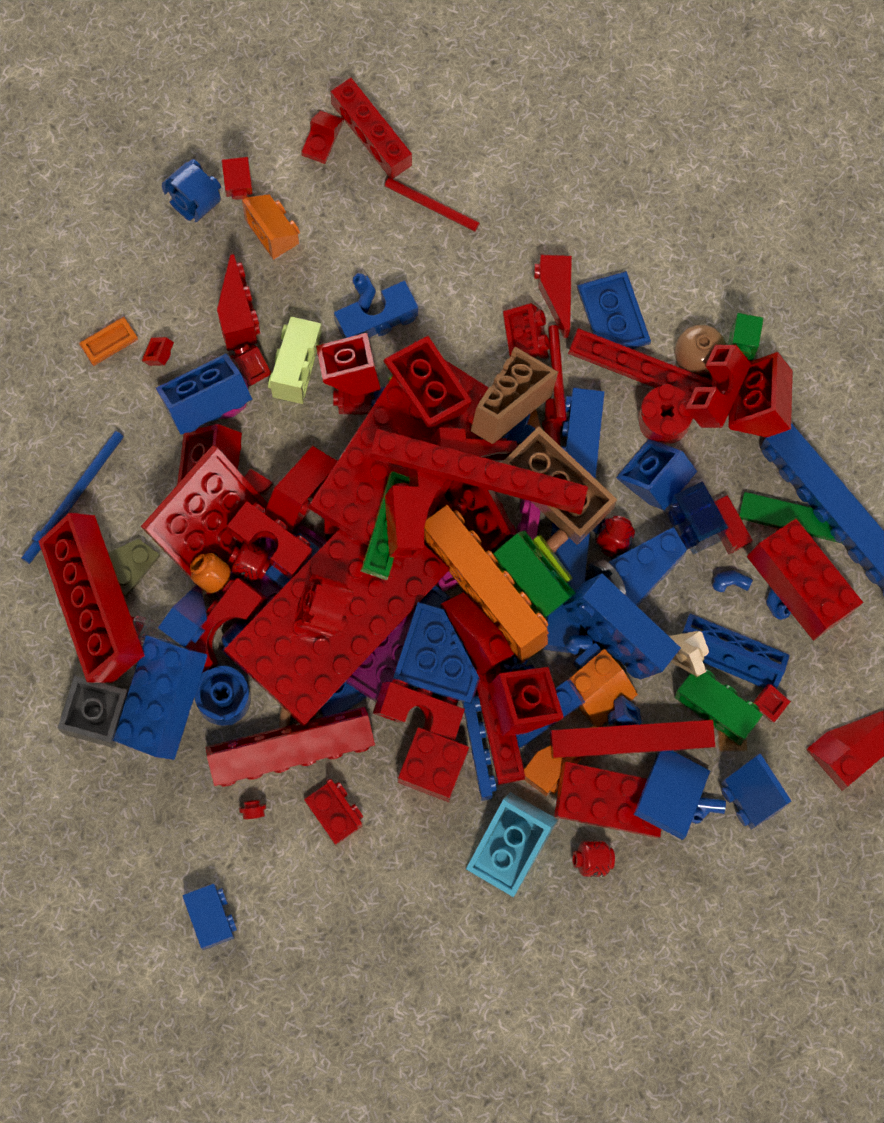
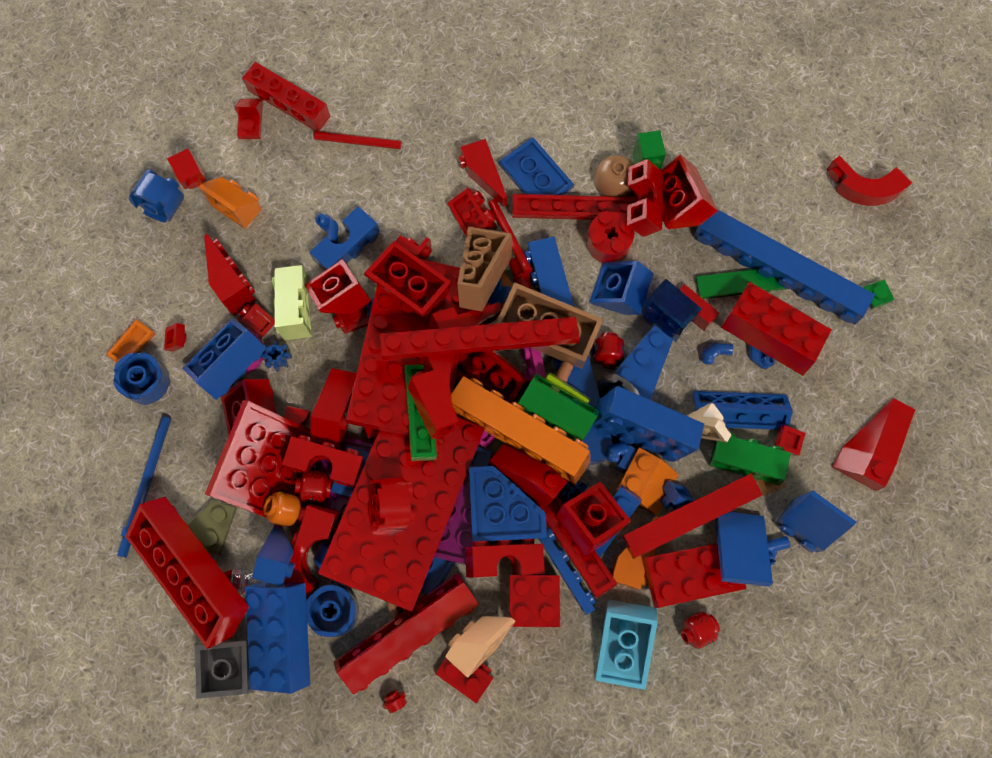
camera: 15 degrees left, 0 degrees up
(111, 397) = (129, 382): none -> blue brick
(262, 417) = (281, 359): none -> blue gear
(360, 782) = (477, 642): none -> light nougat slope
(445, 347) = (409, 244): none -> red bracket

